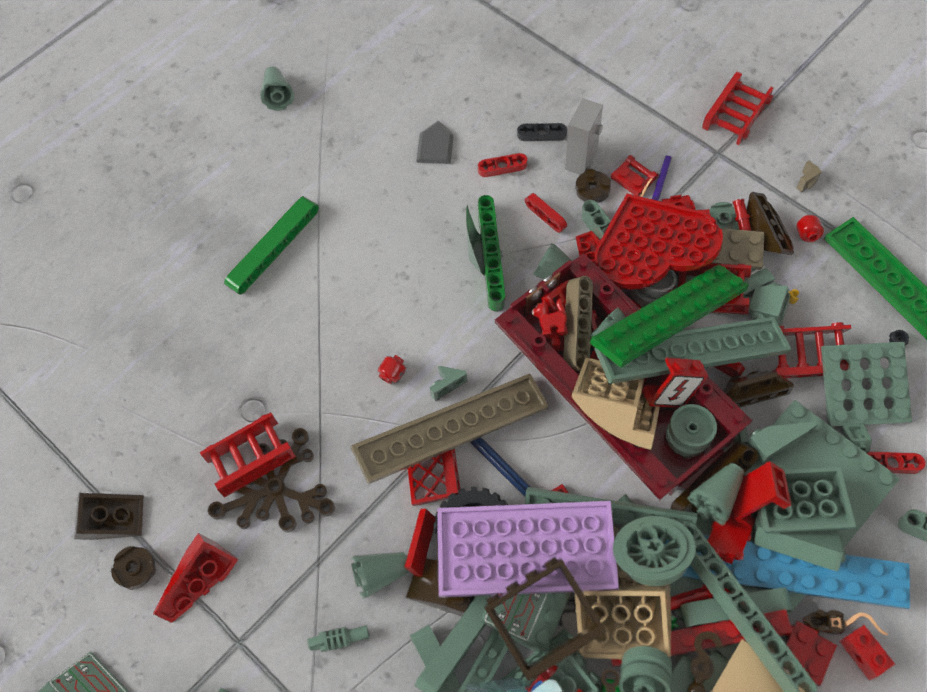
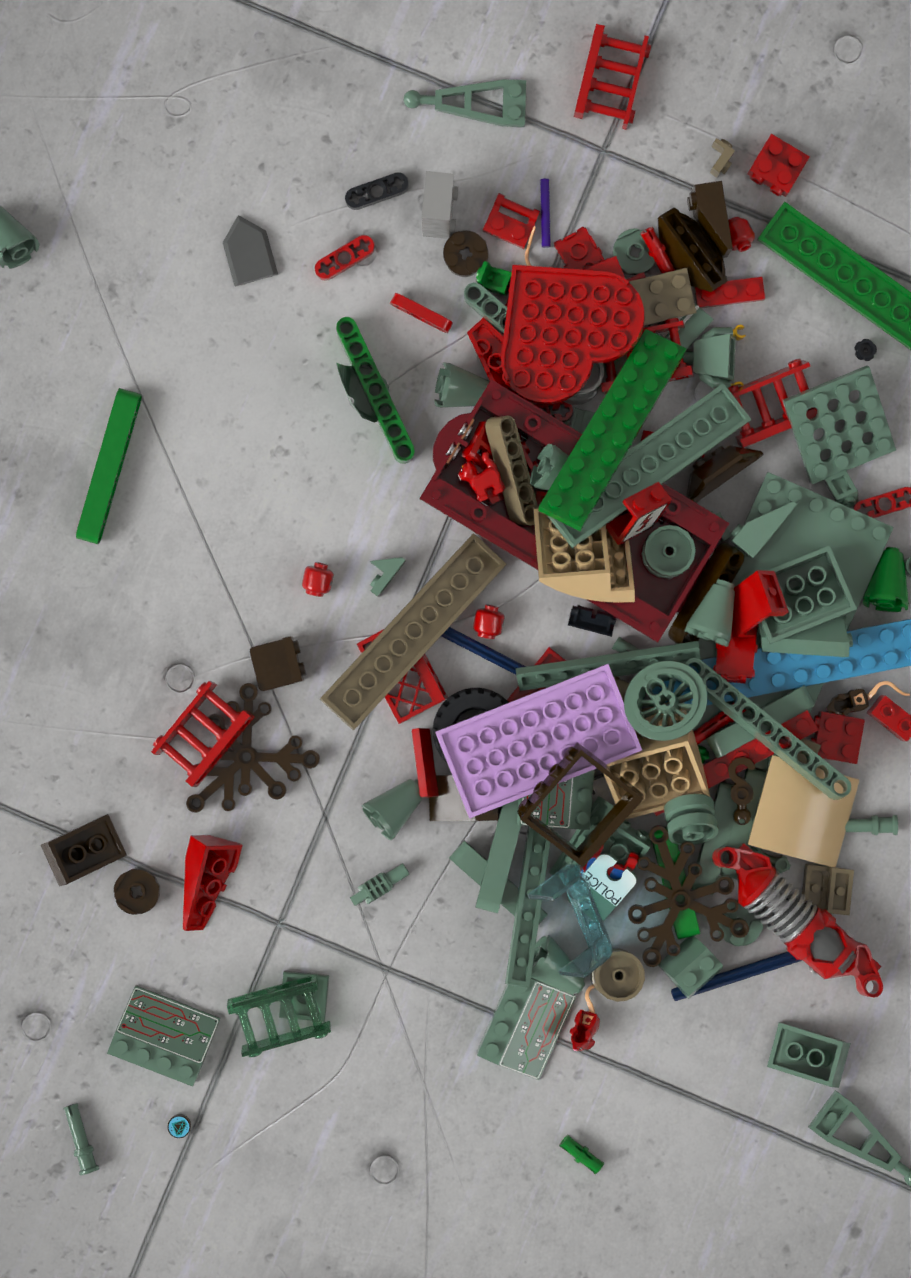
camera: 25 degrees left, 25 degrees up
(333, 422) = (277, 663): none -> dark brown bracket
(518, 446) = (488, 622): none -> red head
(598, 468) = (601, 623): none -> black hinge
(608, 205) = (494, 279): none -> green bracket
(659, 107) = (512, 109): none -> sand green plate
(792, 205) = (710, 212): none -> dark brown slope
(793, 267) = (732, 293): none -> red plate
(852, 195) = (778, 166): none -> red plate
(884, 529) = (888, 583): none -> green cone

